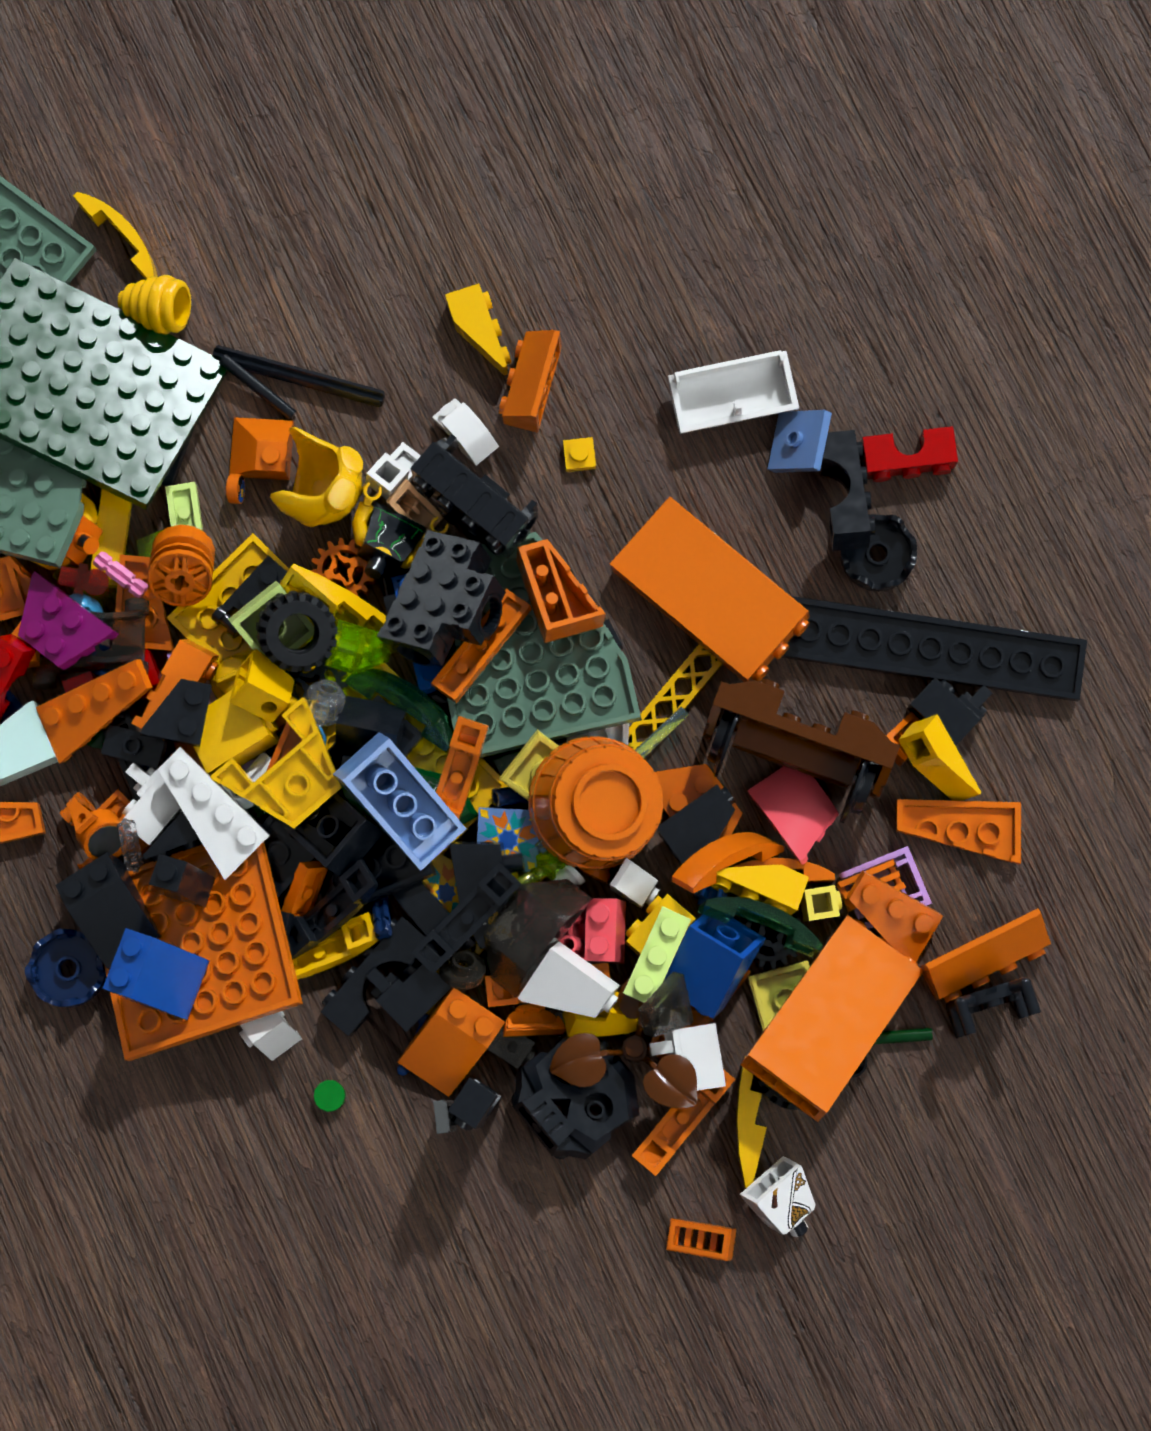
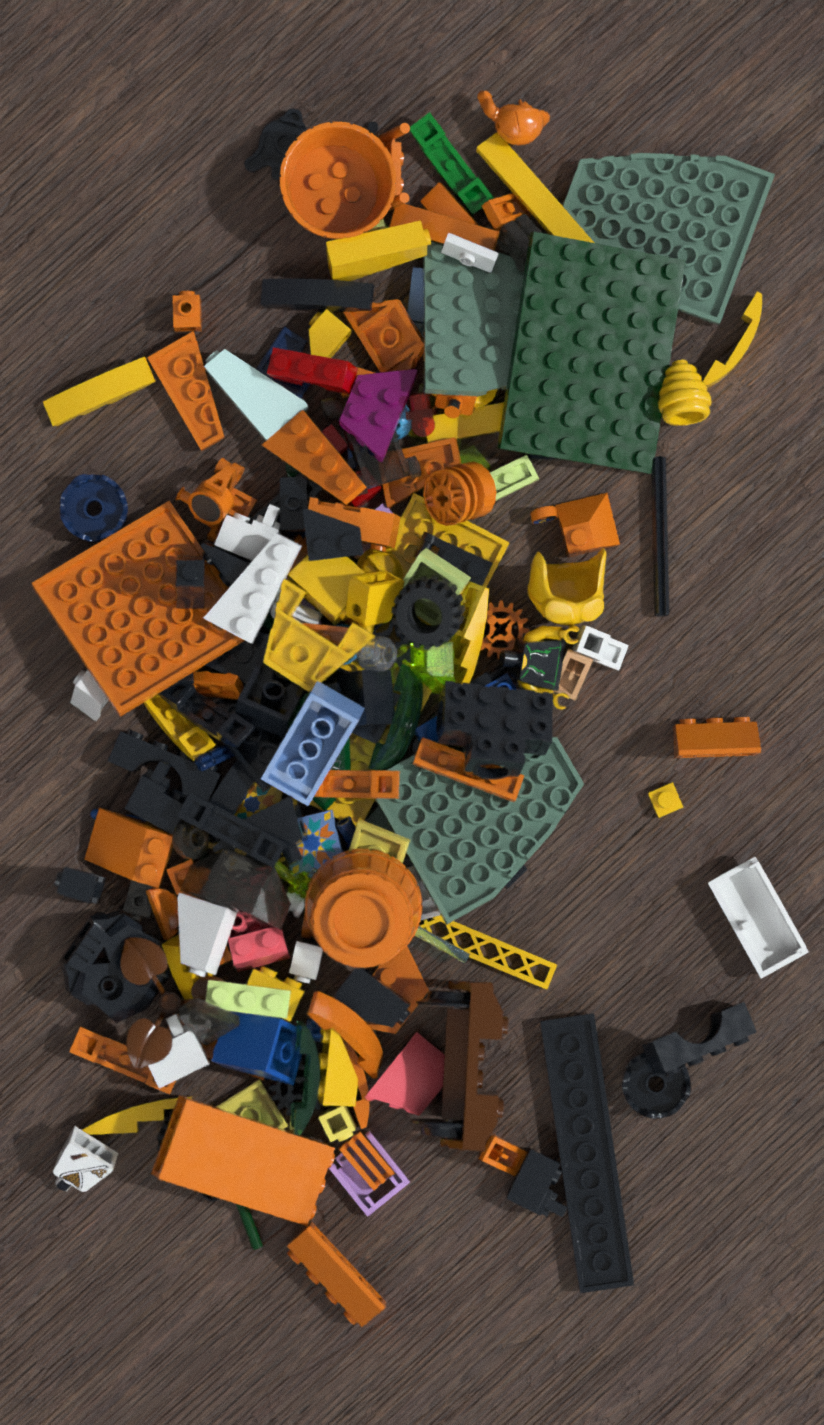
camera: 65 degrees right, 5 degrees up
(104, 904) = (150, 528): black slope -> none
(120, 574) = (436, 444): bright pink axle -> none
(130, 845) = (209, 528): clear axle -> none
(156, 974) = (106, 588): blue slope -> none
(256, 386) = (638, 505): black bar -> none
(329, 1095) = (55, 760): green tile -> none
(443, 1116) = (67, 860): dark grey tile -> none
(471, 433) = (654, 696): white brick -> none
(472, 501) = (590, 718): black piece -> none
(473, 322) = (755, 670): yellow slope -> none
(555, 594) = (529, 820): orange wedge -> none
(710, 591) = (576, 950): orange brick -> none
(728, 1242) = (40, 1127): orange slope -> none
(799, 441) = (732, 987): medium blue plate -> none
(884, 460) = (759, 1108): red arch -> none
(895, 915) = (347, 1188): orange wing -> none
(938, 759) = (490, 1185): yellow slope -> none
(969, 825) = (443, 1229): orange wing -> none
(1018, 991) = (299, 1289): black plate -> none

